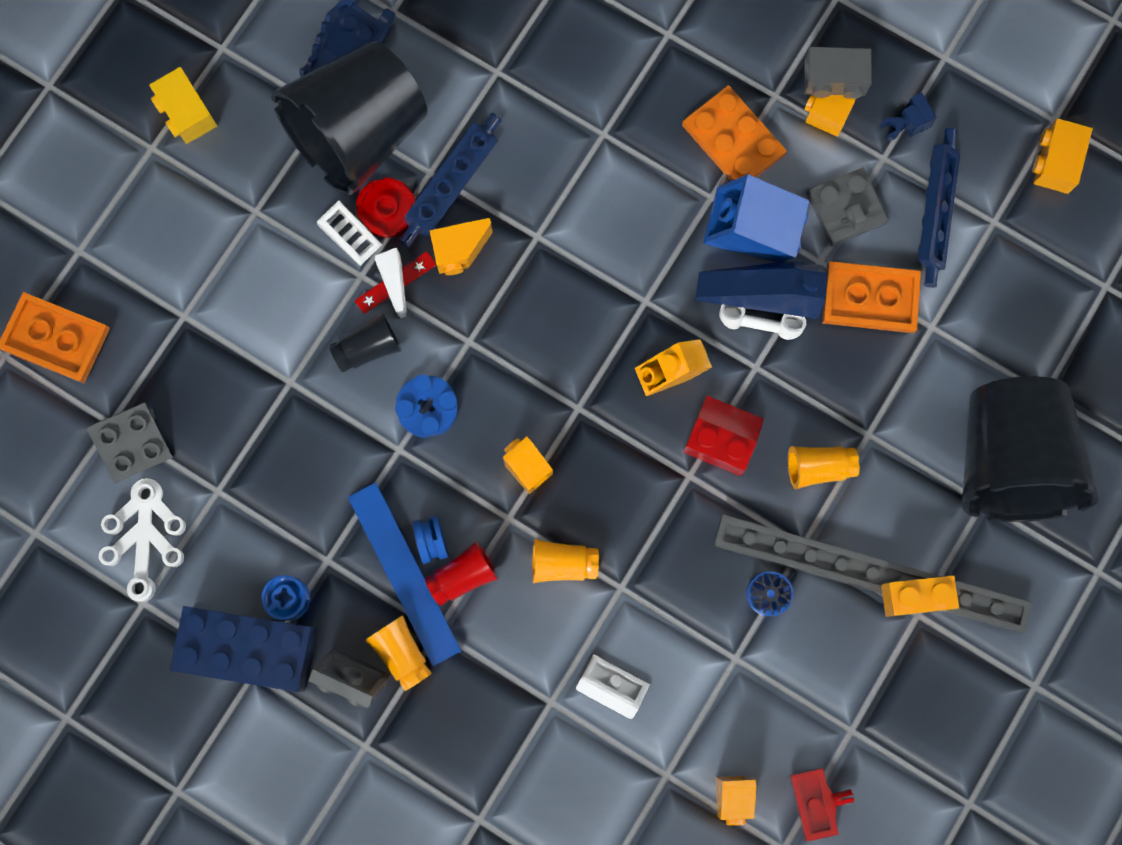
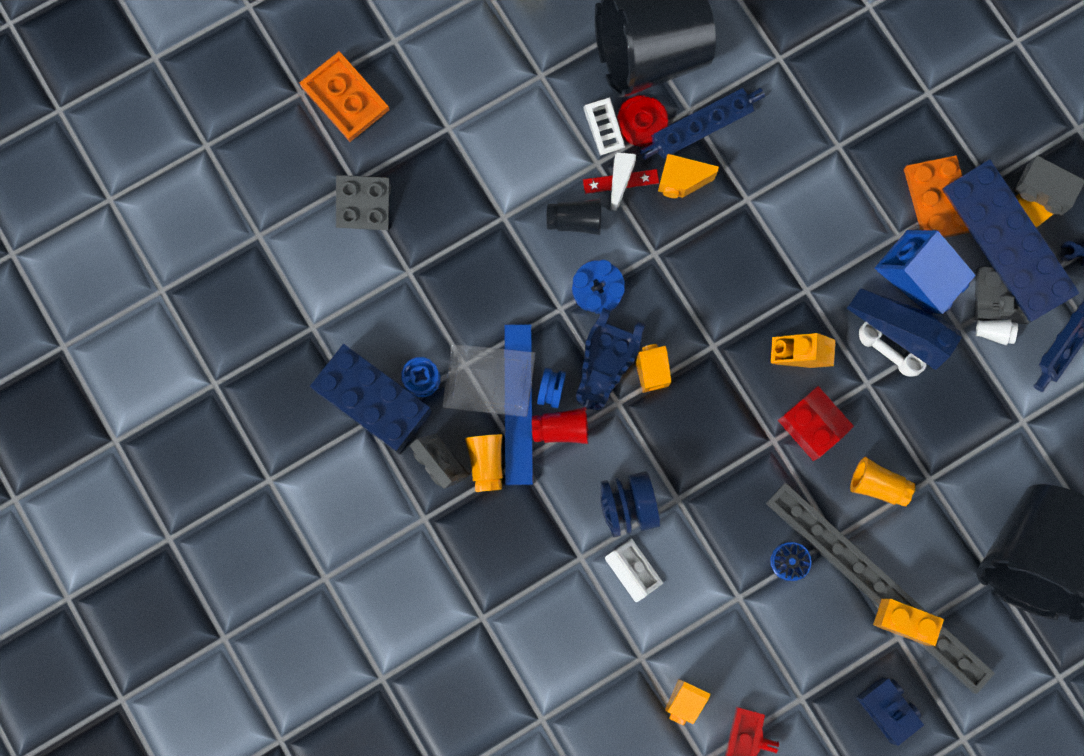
camera: 25 degrees right, 0 degrees up
(142, 535) = (338, 276): white plant -> none
(360, 564) = (489, 380): none -> clear piece
(473, 477) = (607, 358): none -> dark blue animal
(563, 562) = (644, 456): light orange plant -> none
(573, 621) = (629, 504): none -> dark blue wheel
(826, 147) = (1010, 241): none -> dark blue plate
(860, 246) = (998, 330): none -> white cone
(872, 297) = (987, 375): orange plate -> none
(947, 696) = (890, 710): none -> dark blue brick

